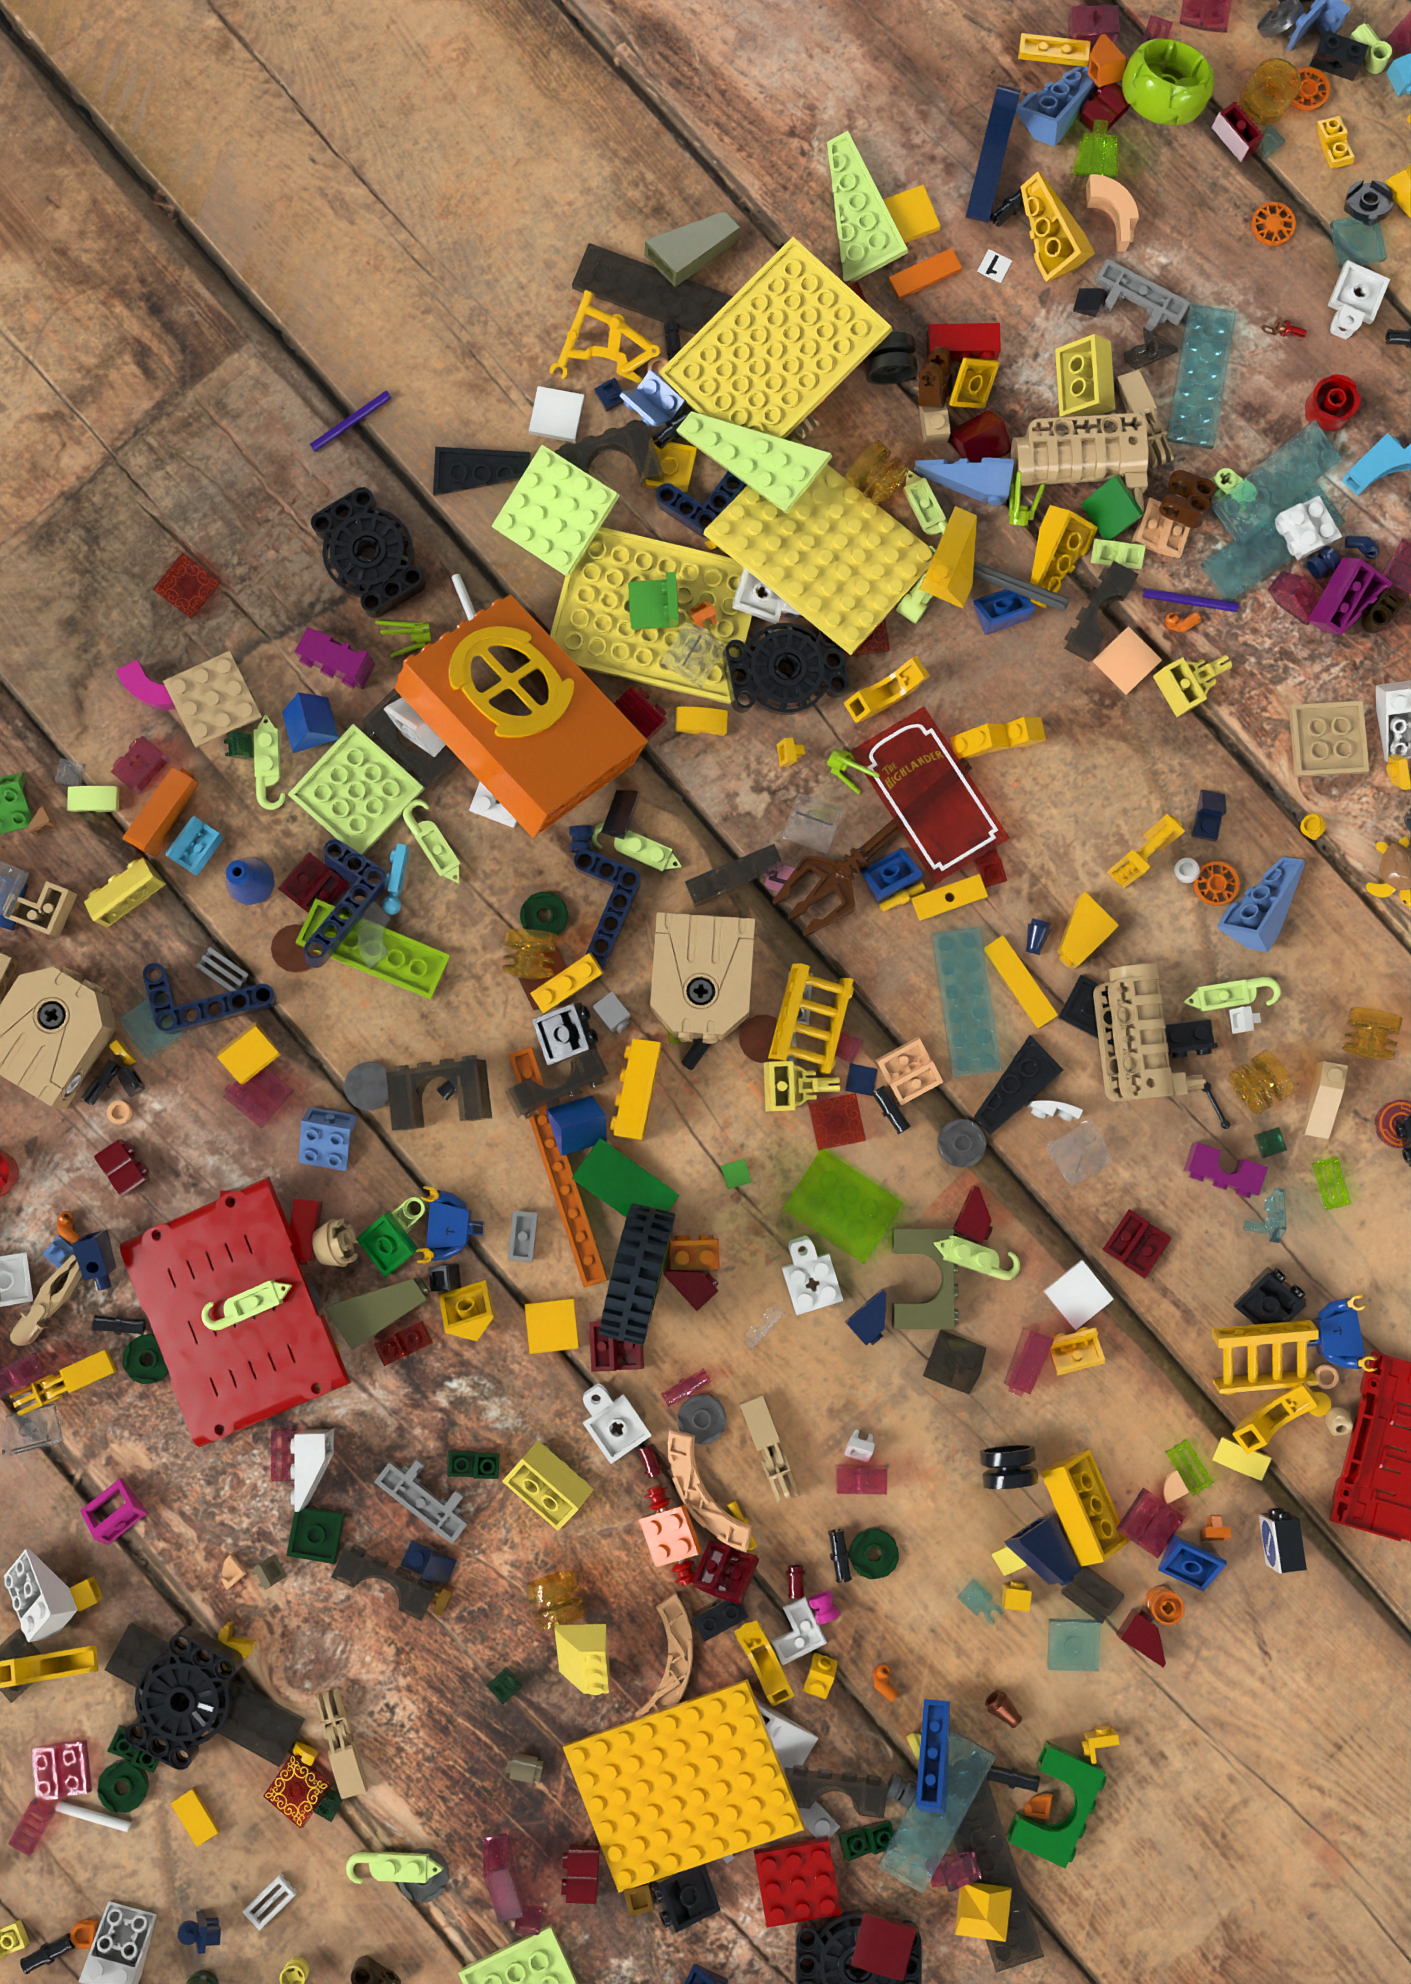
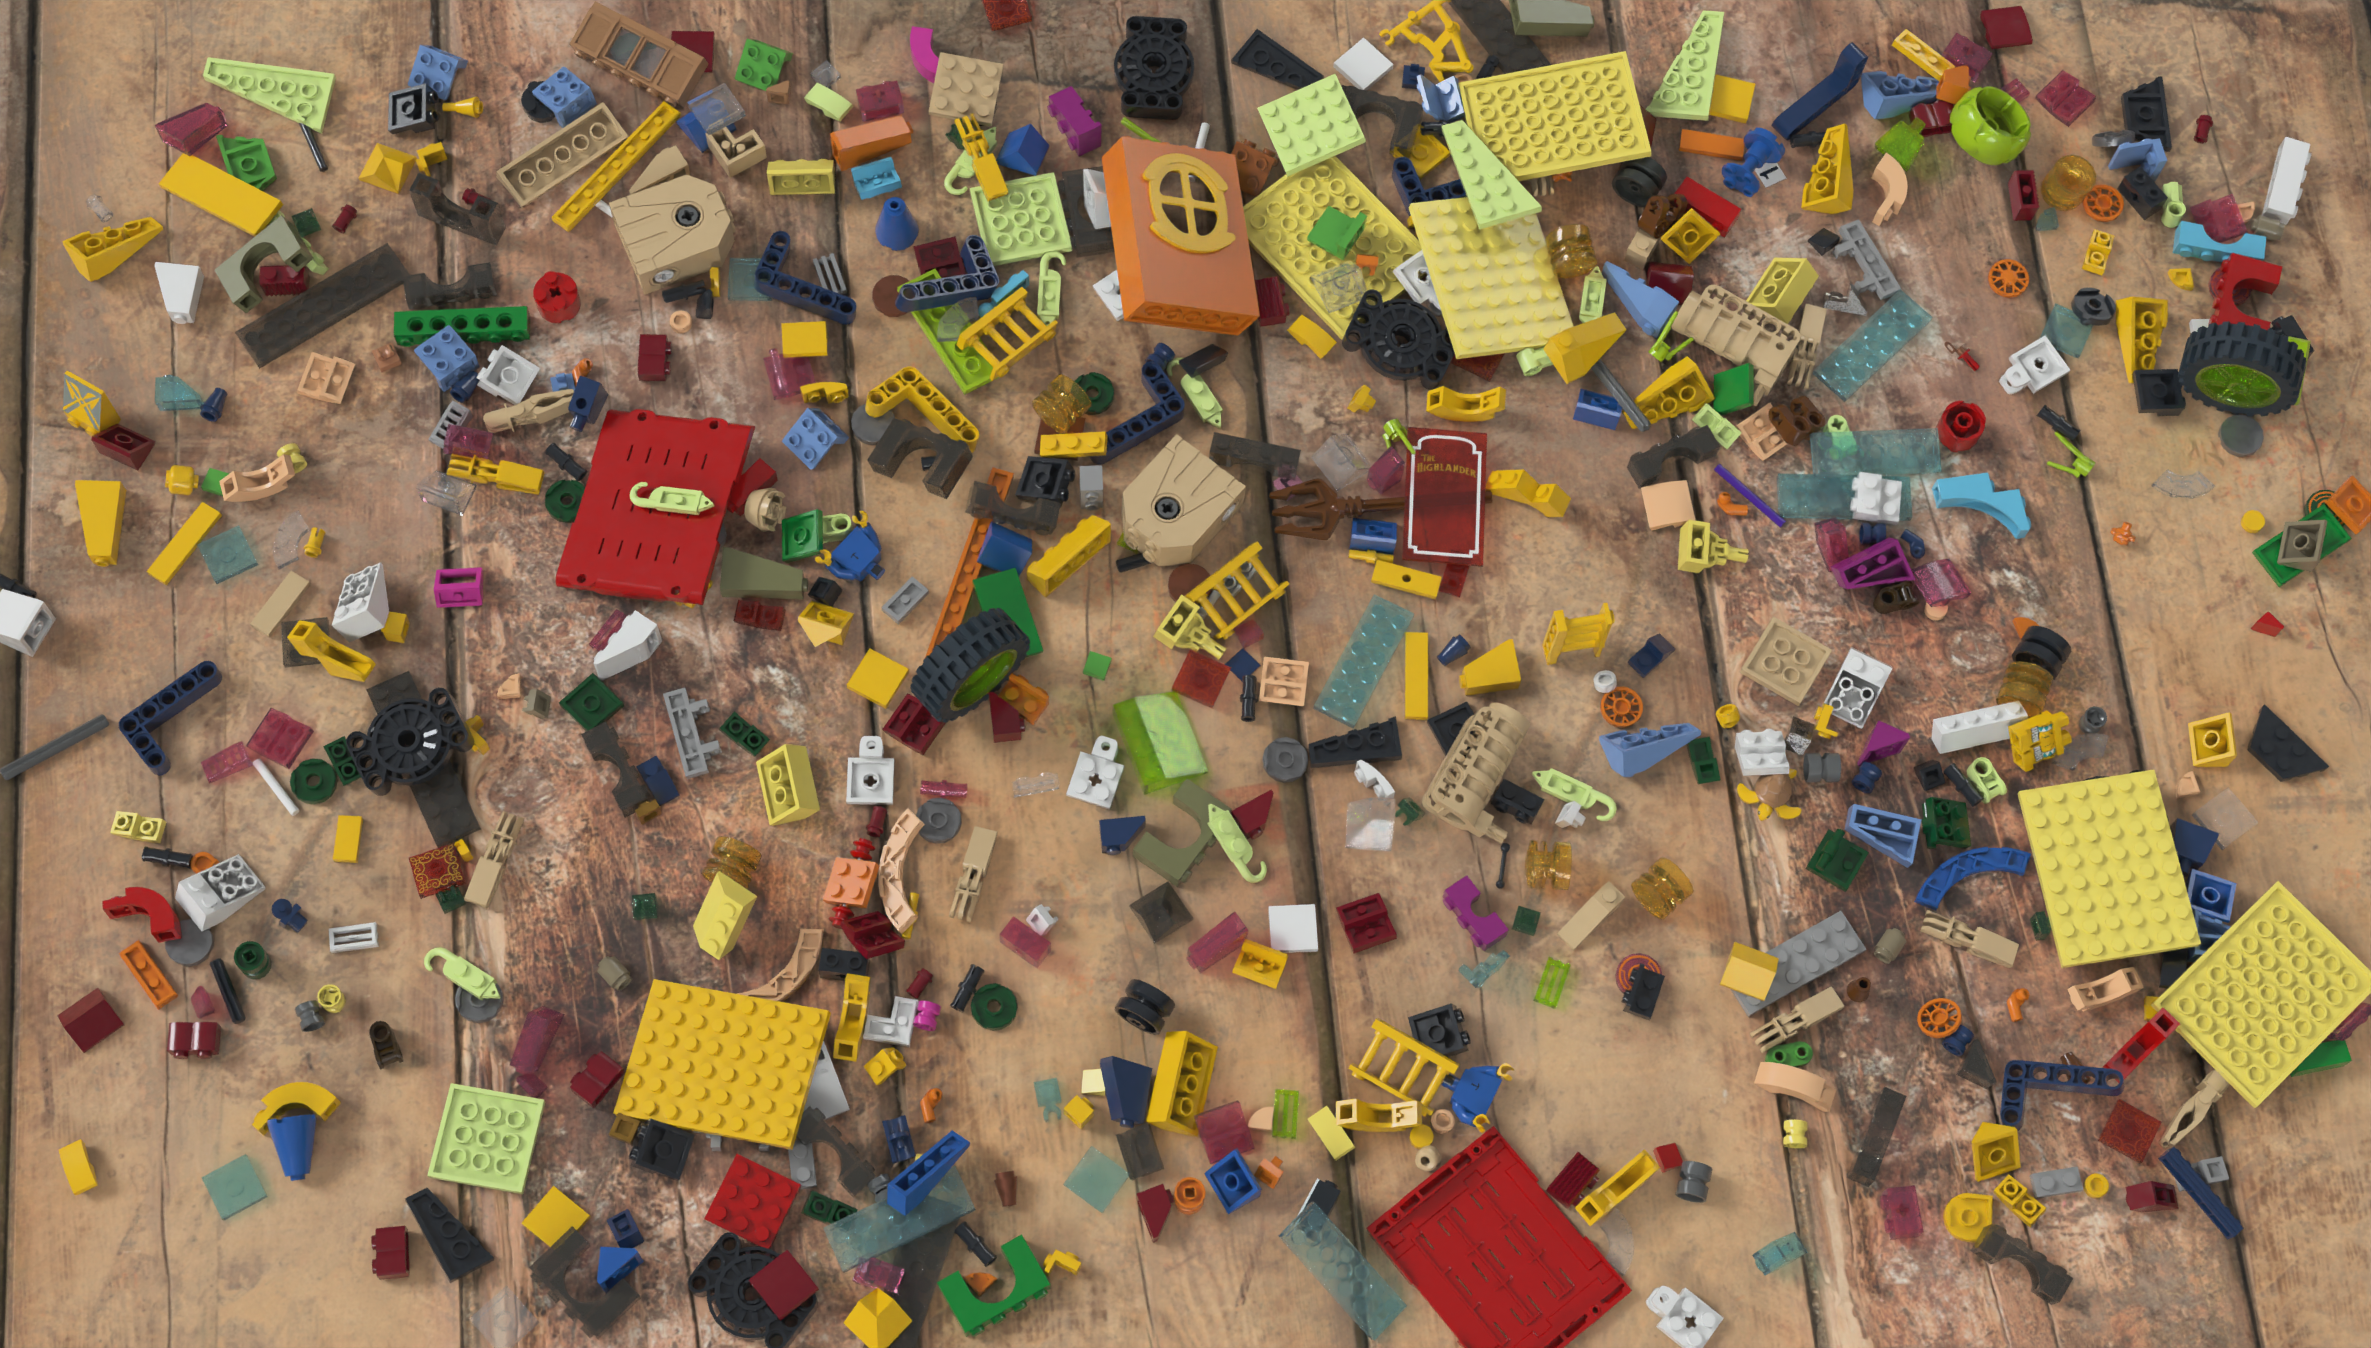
camera: 30 degrees right, 15 degrees down
(288, 765) = (984, 167): none -> yellow arm
(310, 1084) = (833, 391): none -> yellow slope
(404, 1036) = (927, 405): none -> yellow beam
(411, 901) = (1002, 314): none -> yellow fence
(529, 587) = (1253, 166): none -> dark orange bracket
(861, 809) = (1386, 471): none -> clear pink slope
(882, 1737) = (899, 1139): none -> dark blue hips
(976, 247) = (1761, 149): none -> blue piece
(1104, 1113) = (1411, 810): none -> clear green tile
(1320, 885) = (1703, 760): none -> dark green slope
(1344, 1583) = (1342, 1270): none -> clear light blue plate
(1369, 843) = (1761, 752): none -> white plate
(1387, 801) = (1799, 735): none -> clear smoke slope

